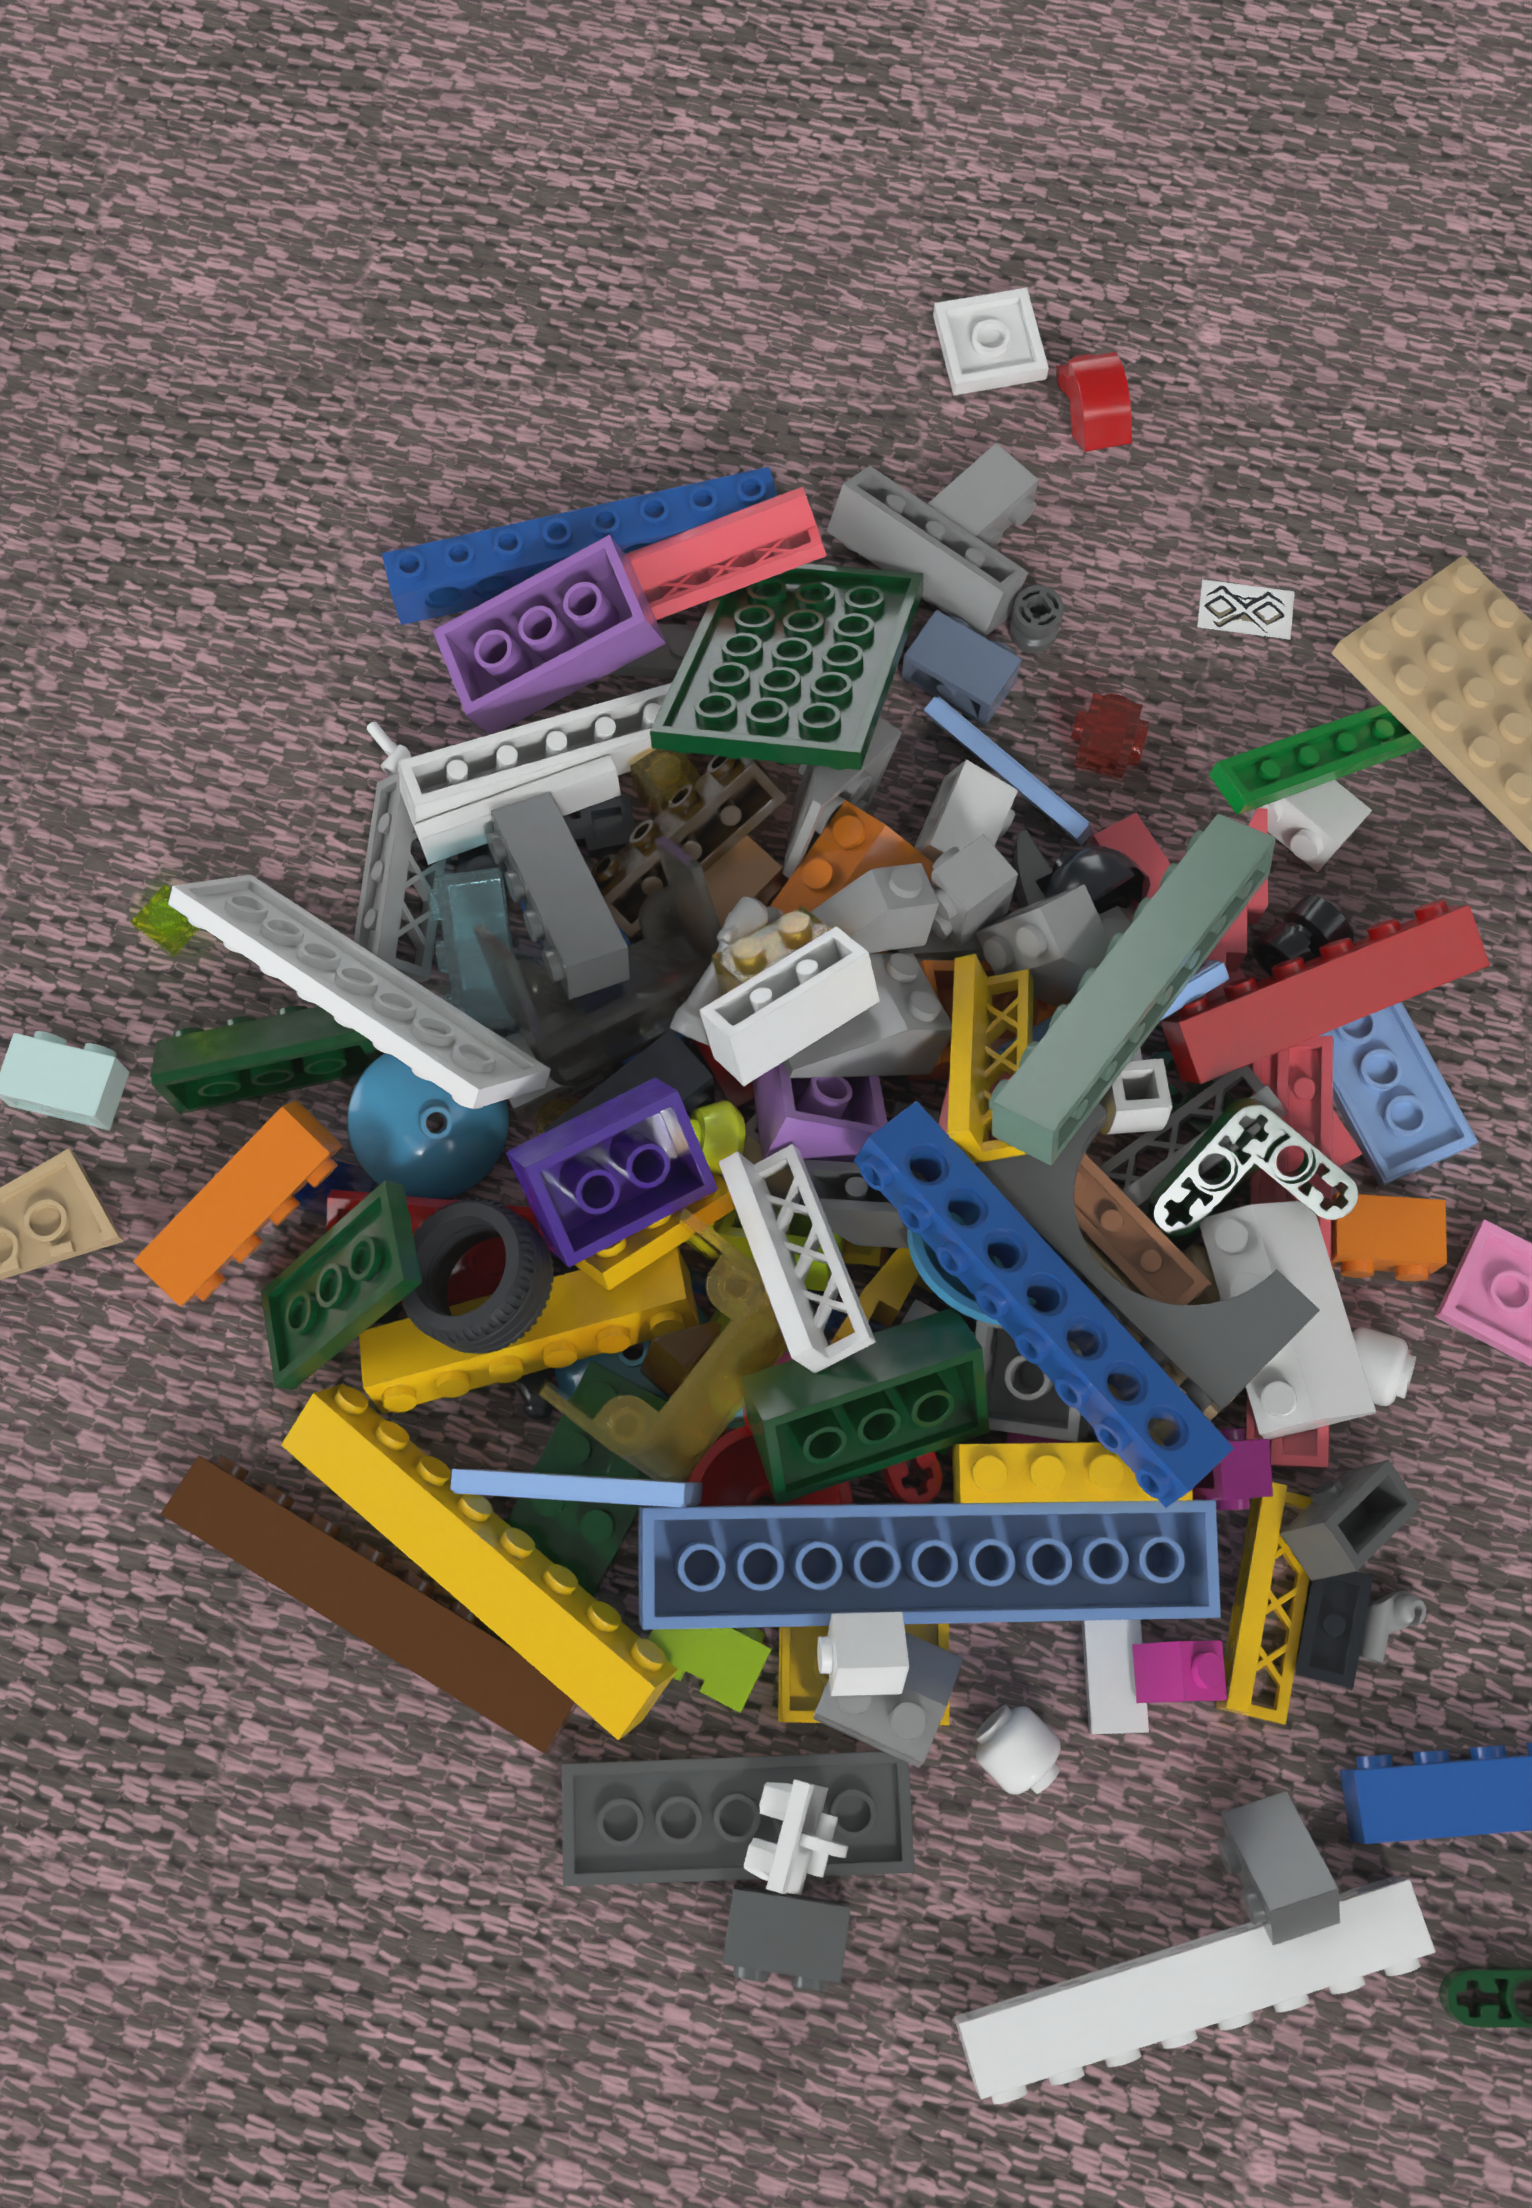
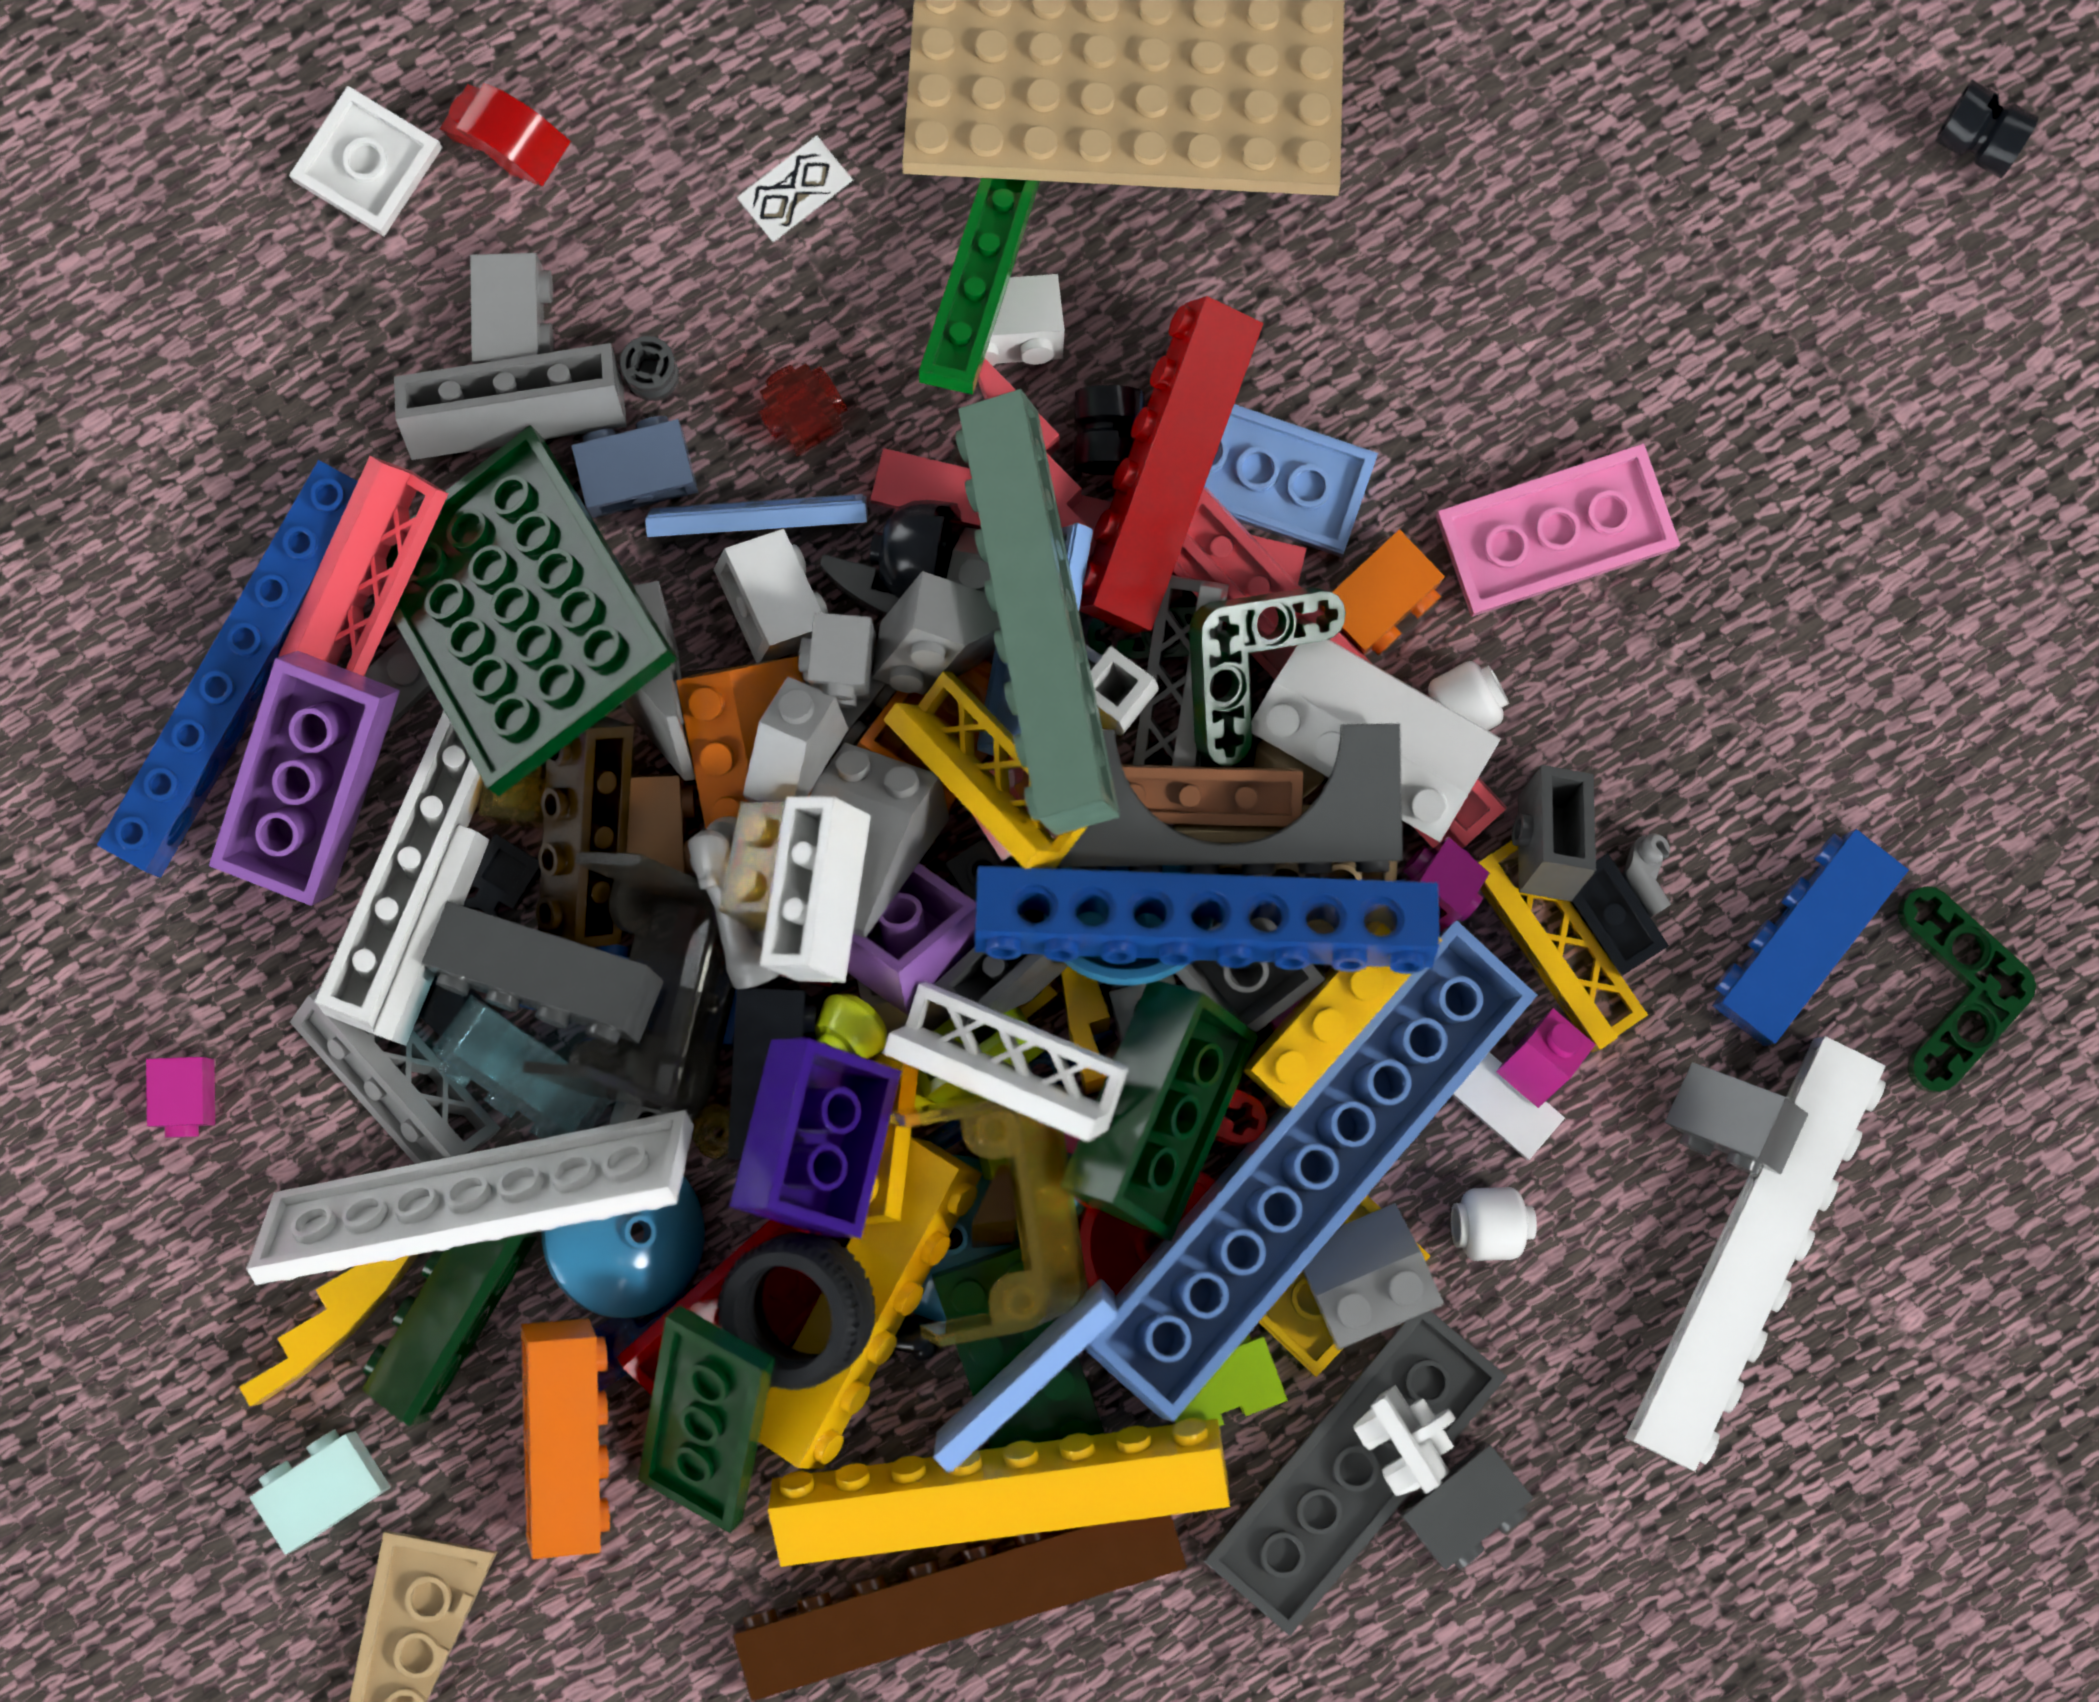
camera: 50 degrees left, 10 degrees up
(163, 923) = (250, 1301): clear neon green plate -> none
(212, 985) = (348, 1305): none -> yellow slope
(262, 754) = (180, 1095): none -> dark pink brick
(394, 752) = (289, 988): white hand -> none
(864, 1653) = (1333, 1277): white brick -> none

